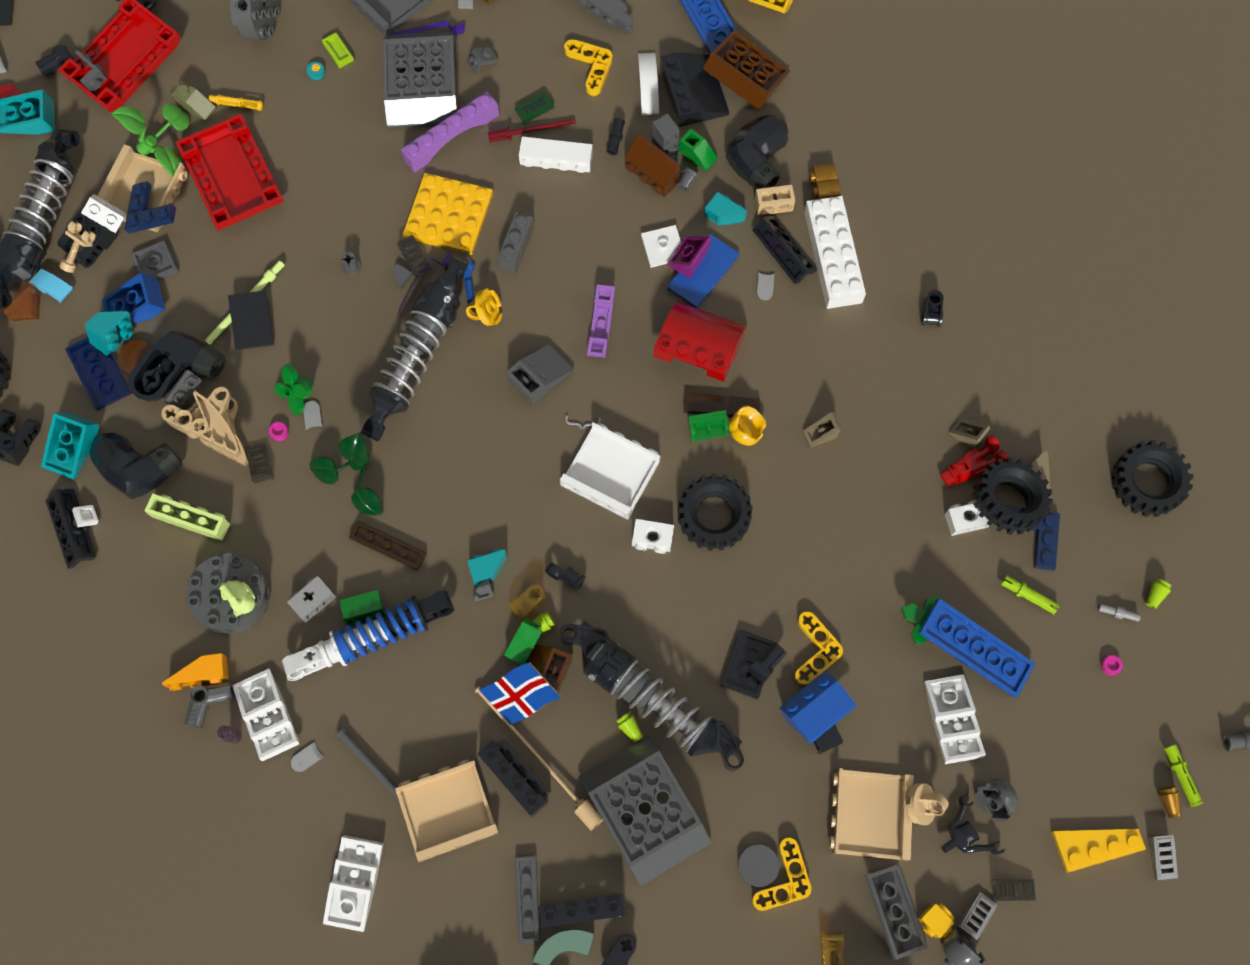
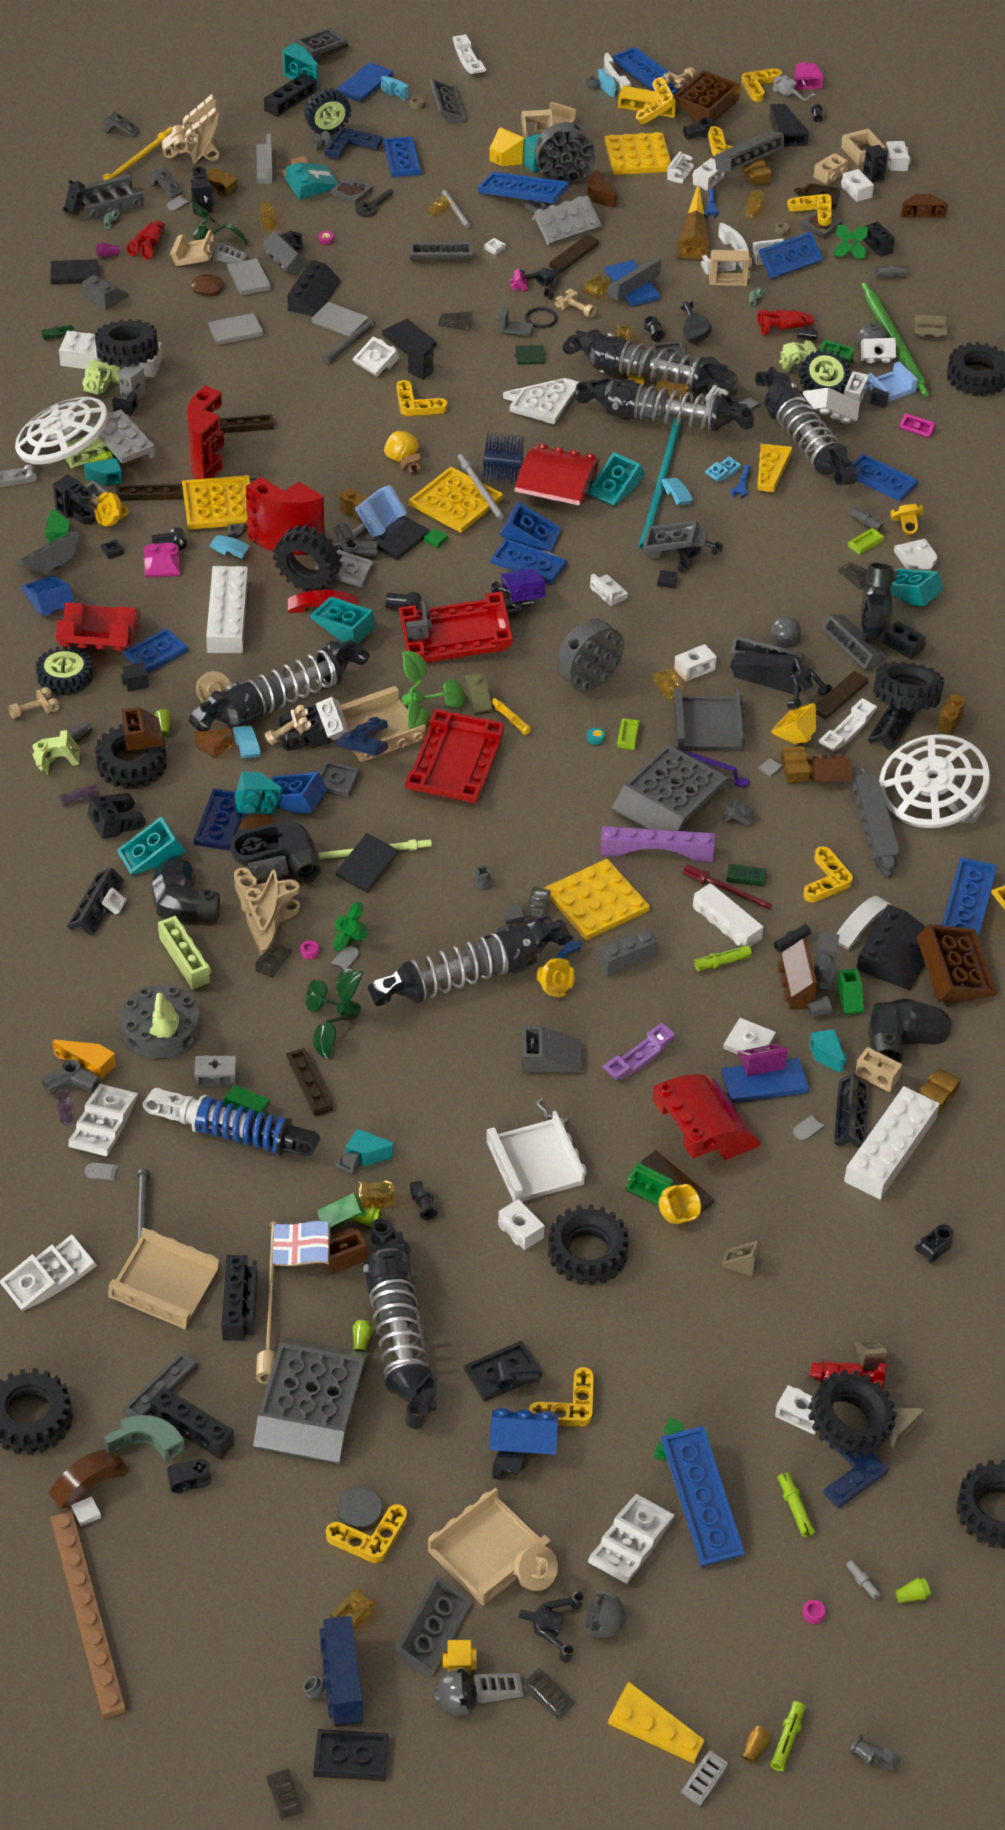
camera: 40 degrees right, 25 degrees down
(581, 197) = (715, 960): none -> lime pin

